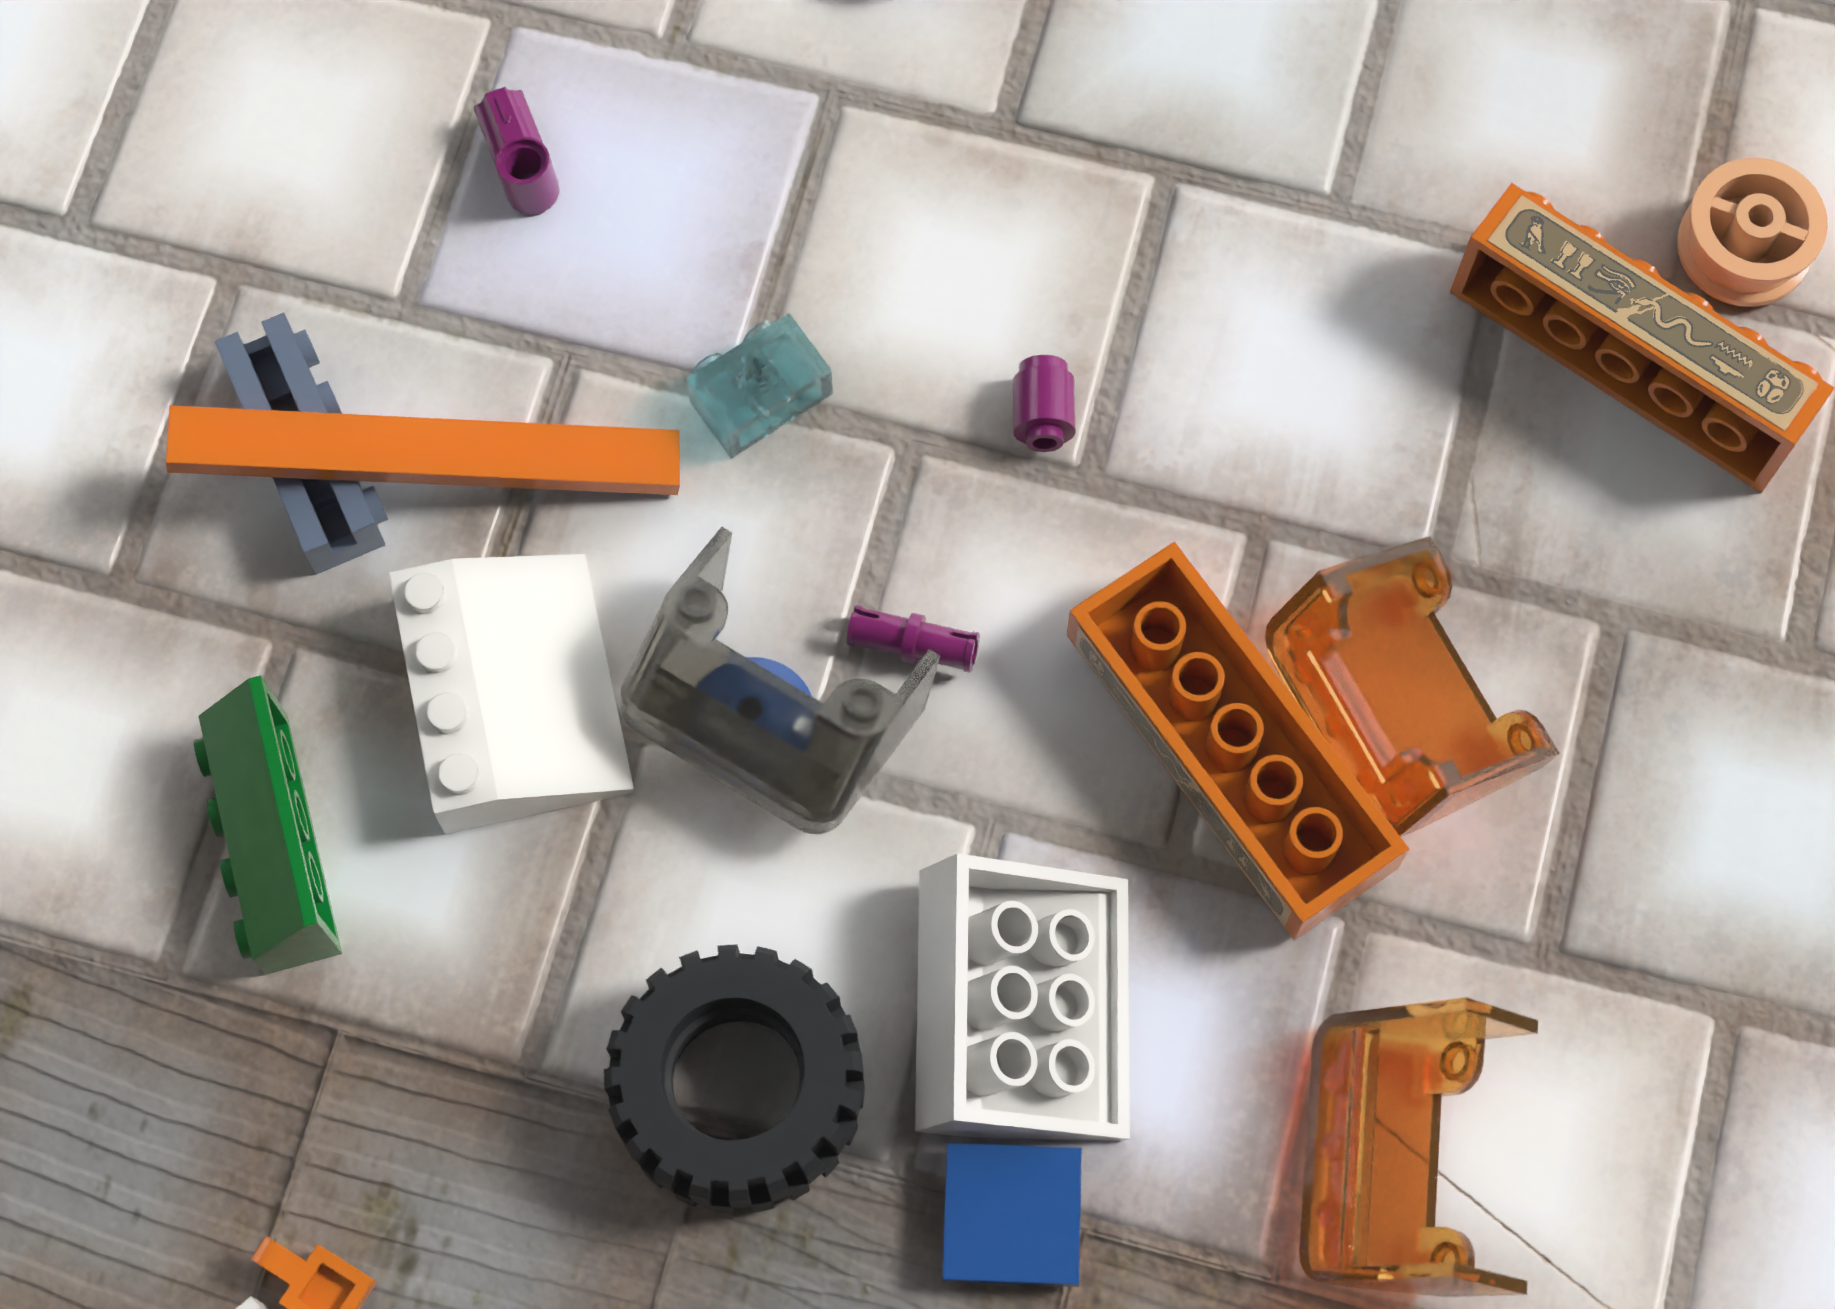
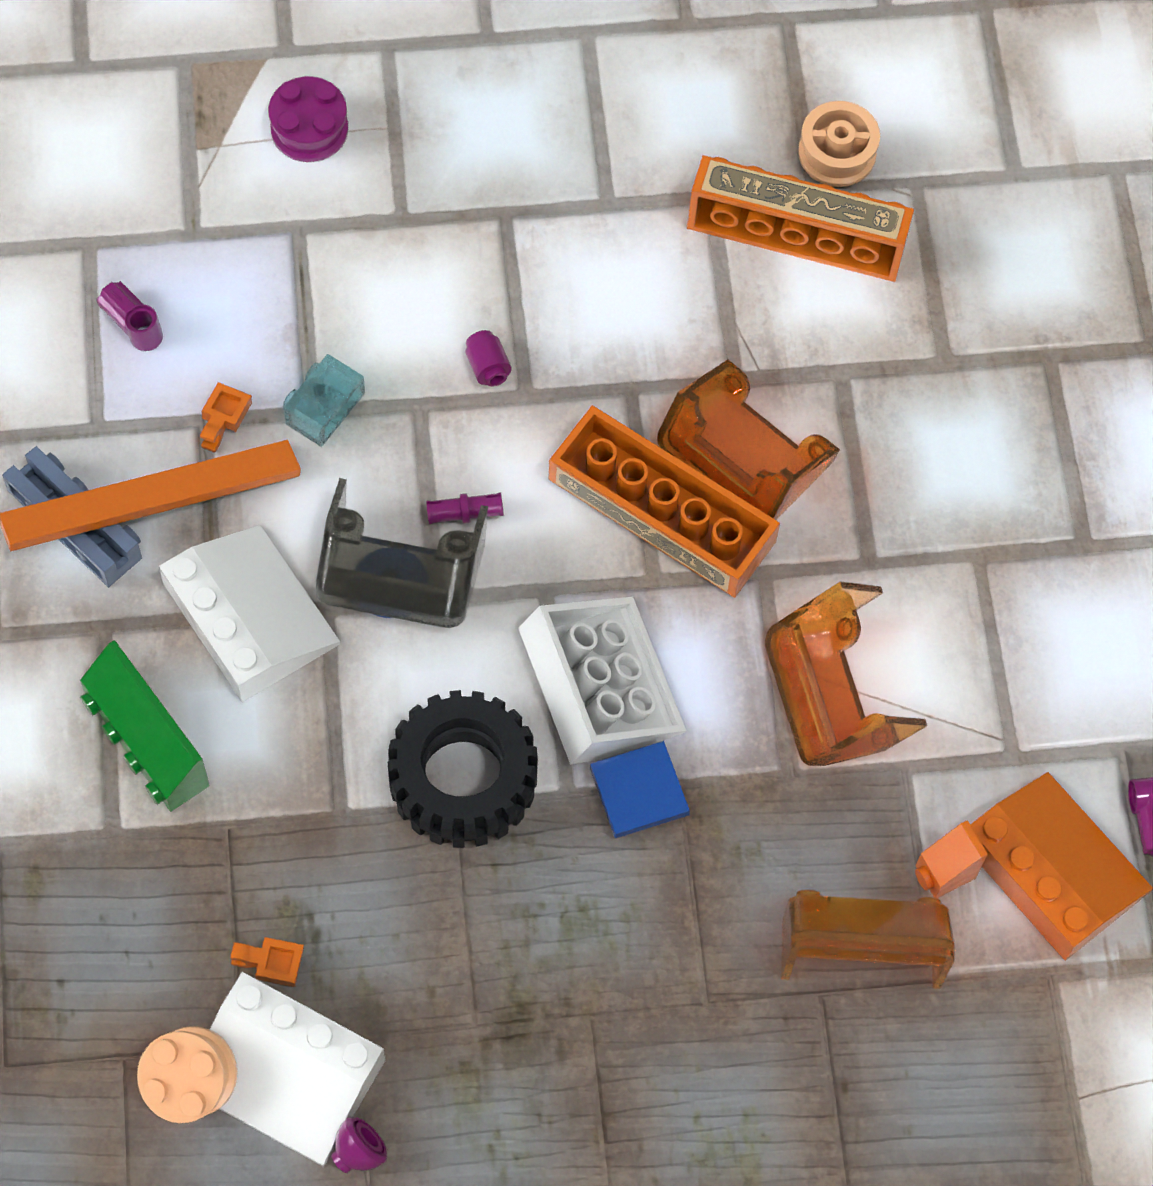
camera: 25 degrees left, 5 degrees down
(597, 350) = (223, 410): none -> orange plate

